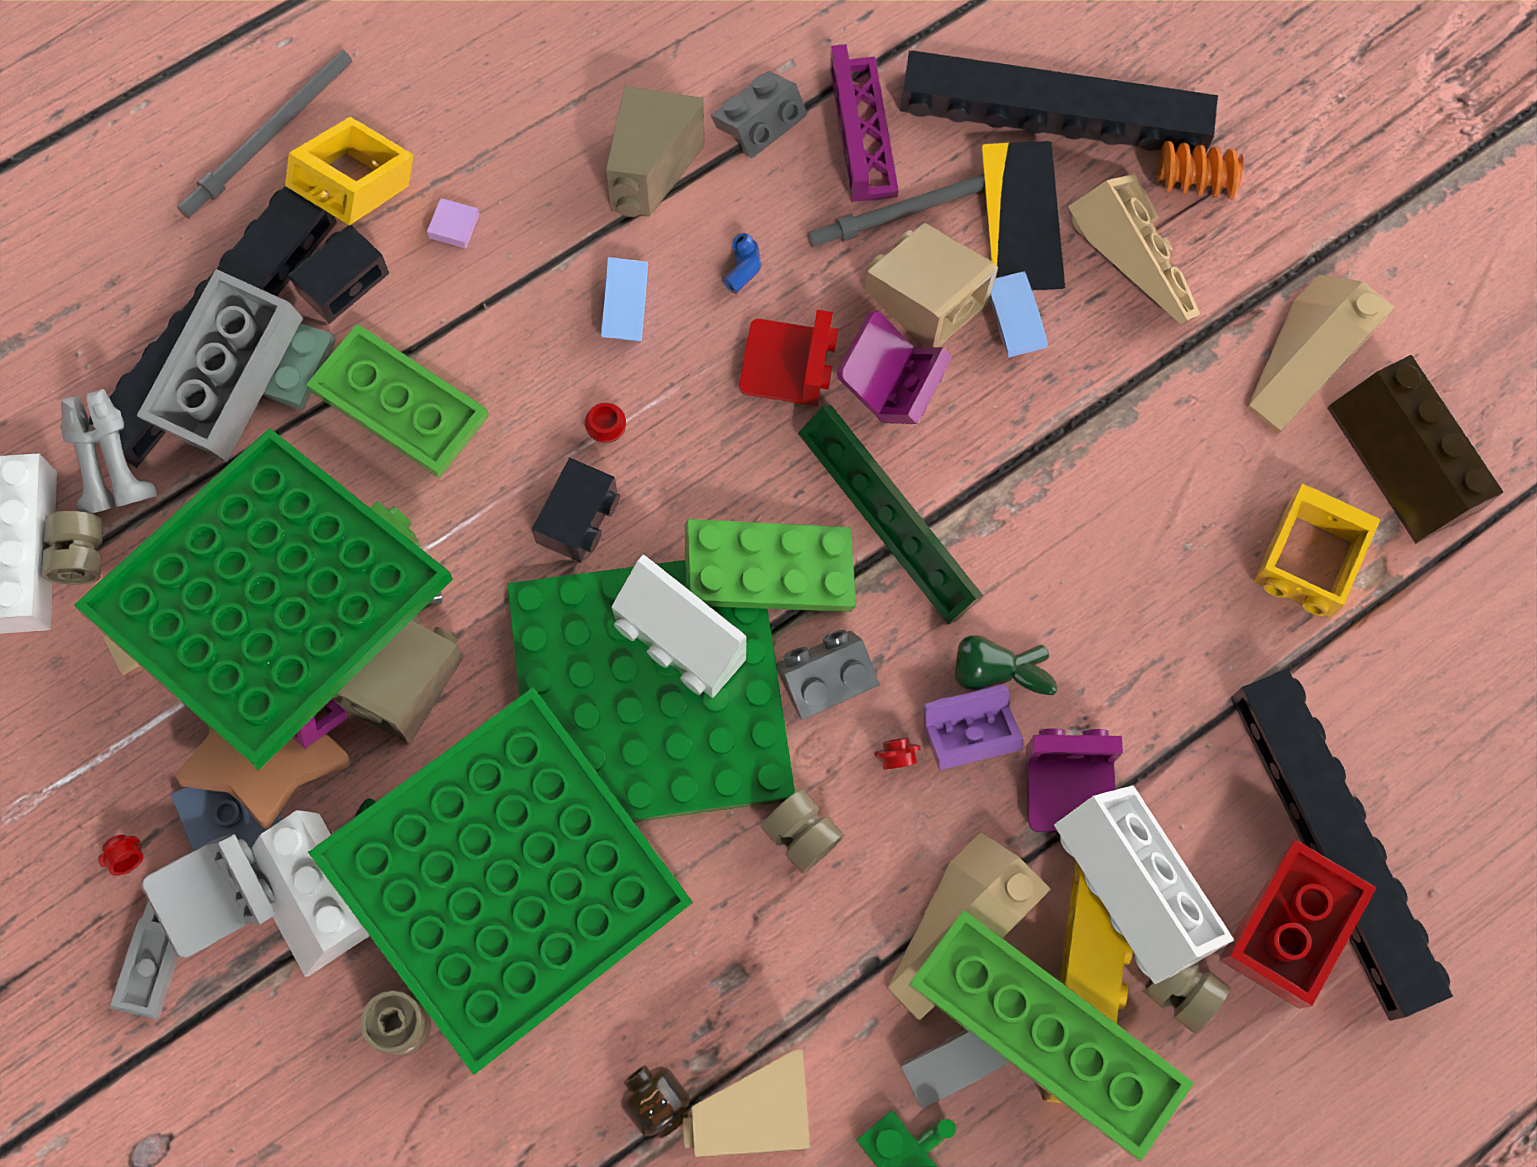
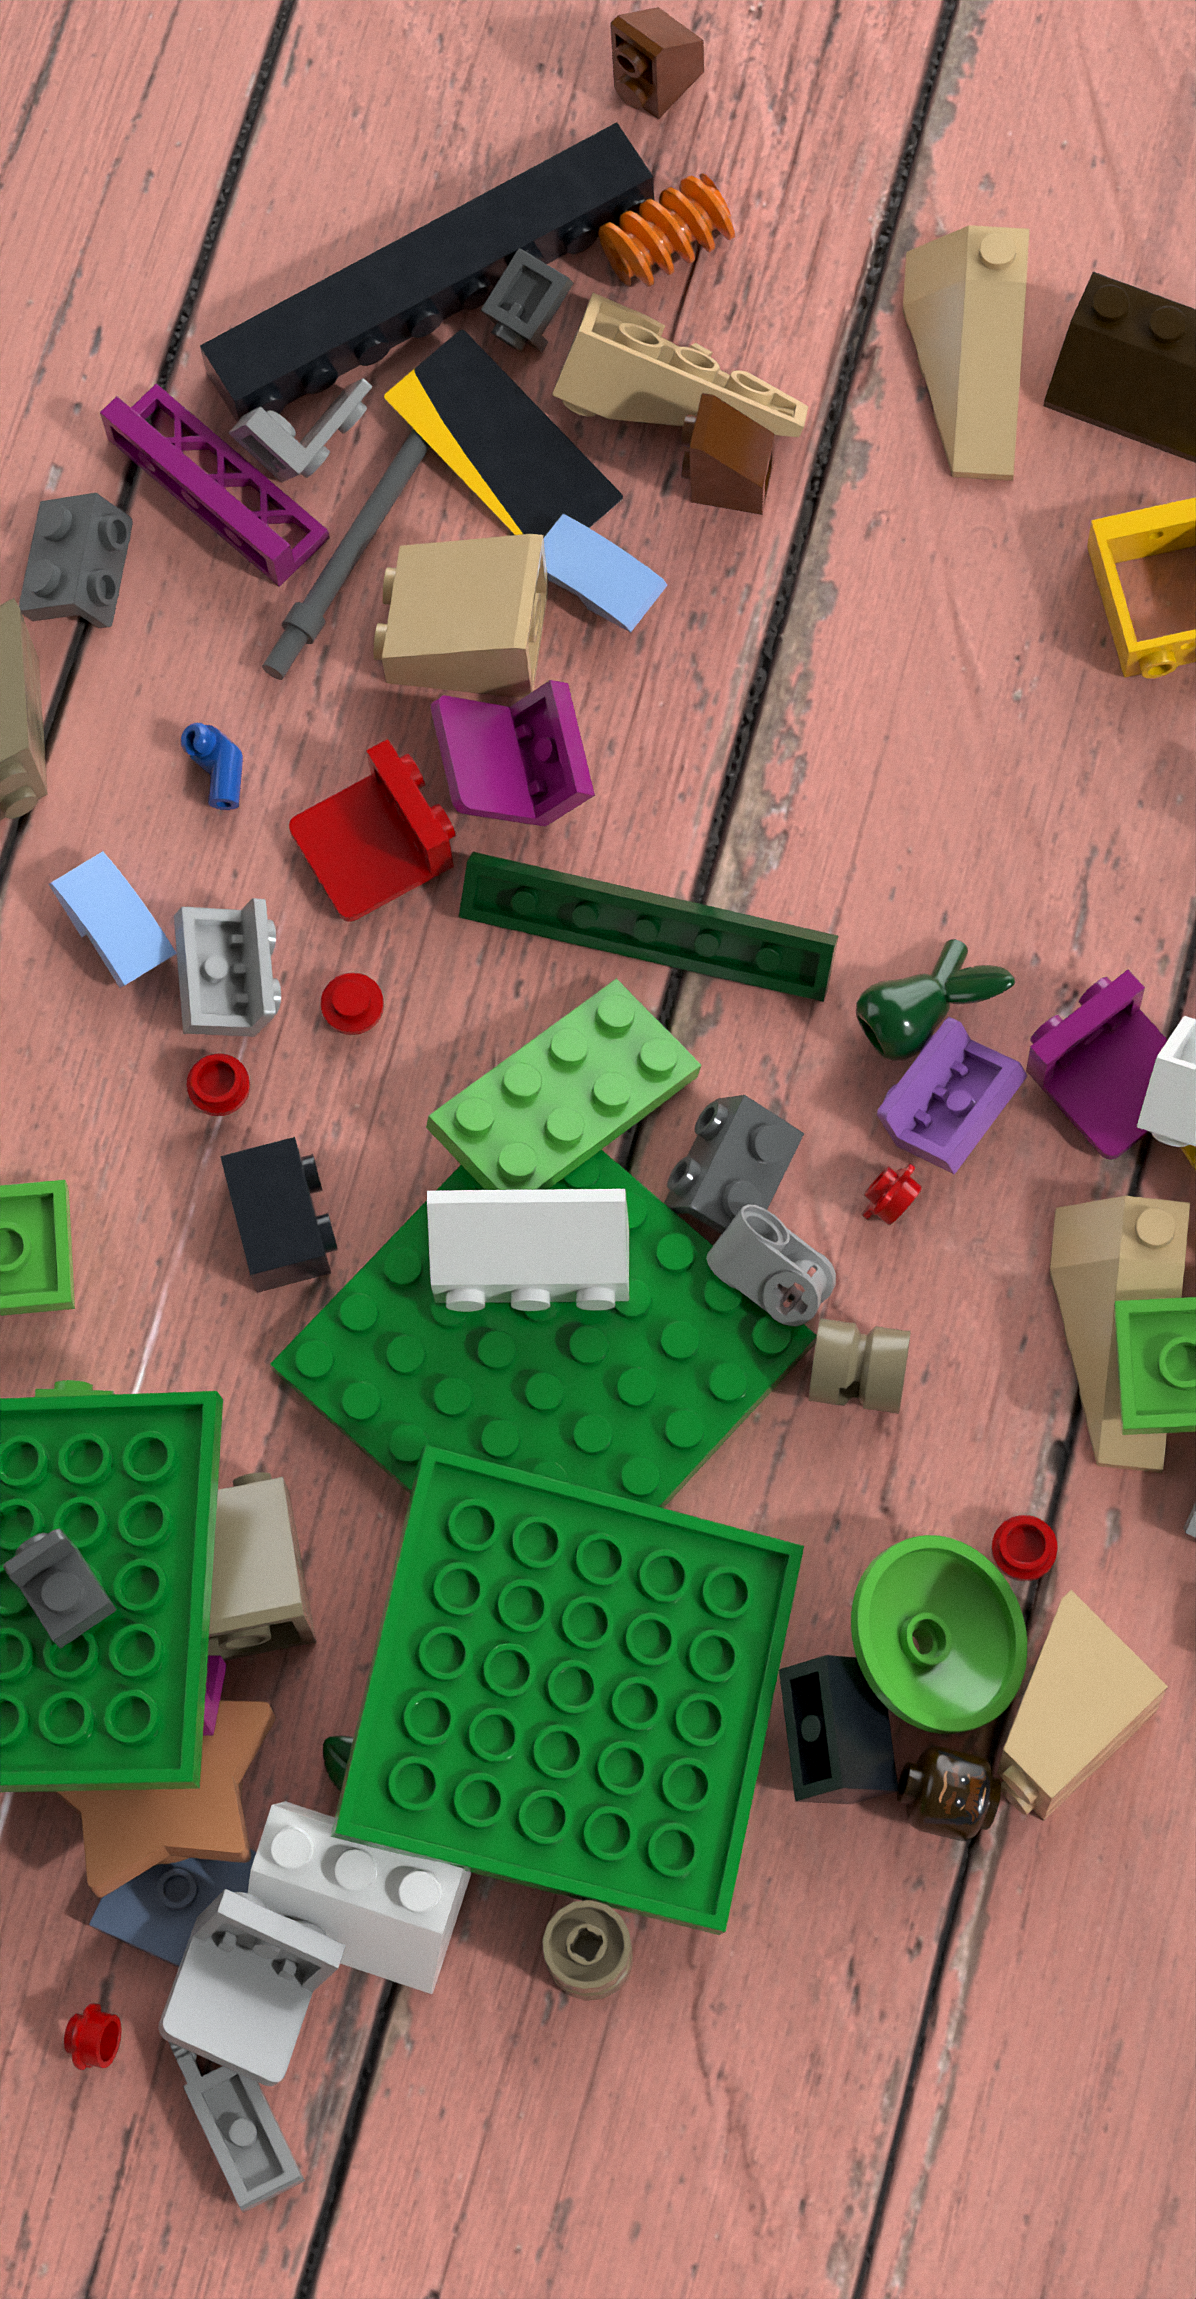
camera: 30 degrees left, 0 degrees up
(281, 606) = (59, 1586): none -> dark grey bracket
(624, 1017) = (836, 1733): none -> black brick
(657, 367) = (226, 969): none -> light grey bracket
(706, 434) = (352, 1003): none -> red plate
(737, 1026) = (965, 1631): none -> bright green dish
(799, 738) = (766, 1261): none -> light grey piece
(809, 1001) = (1024, 1548): none -> red plate
(907, 122) = (272, 438): none -> light grey bracket
(1094, 150) = (525, 301): none -> dark grey bracket
(1133, 304) = (726, 457): none -> reddish brown slope
(1265, 79) = (654, 59): none -> reddish brown slope

